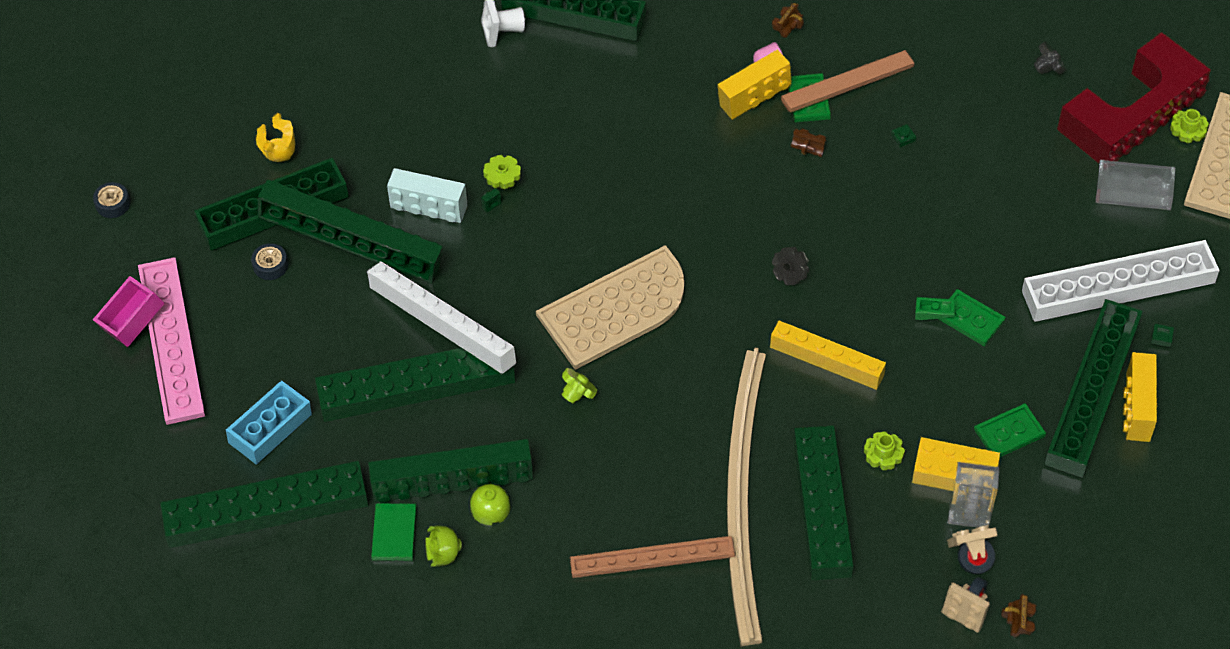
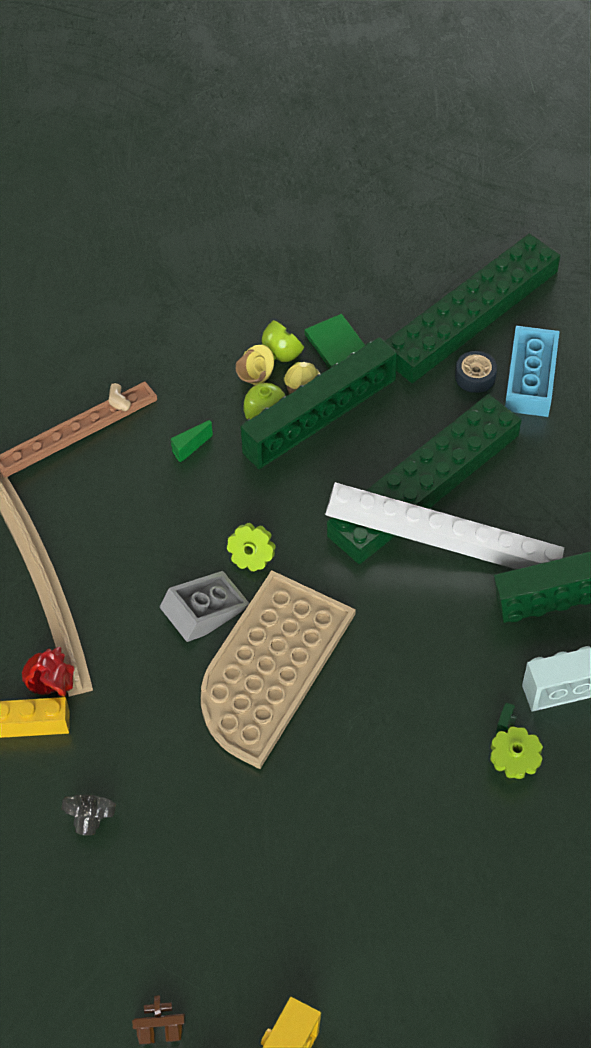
camera: 150 degrees right, 0 degrees up
(308, 440) = (475, 371): none -> black wheel
(445, 510) = (299, 375): none -> light yellow piece
(476, 534) = (255, 364): none -> light yellow piece
(567, 499) = (190, 440): none -> green slope
(607, 559) = (116, 399): none -> tan arm
(637, 365) = (203, 605): none -> light grey slope
(774, 361) = (48, 673): none -> red head

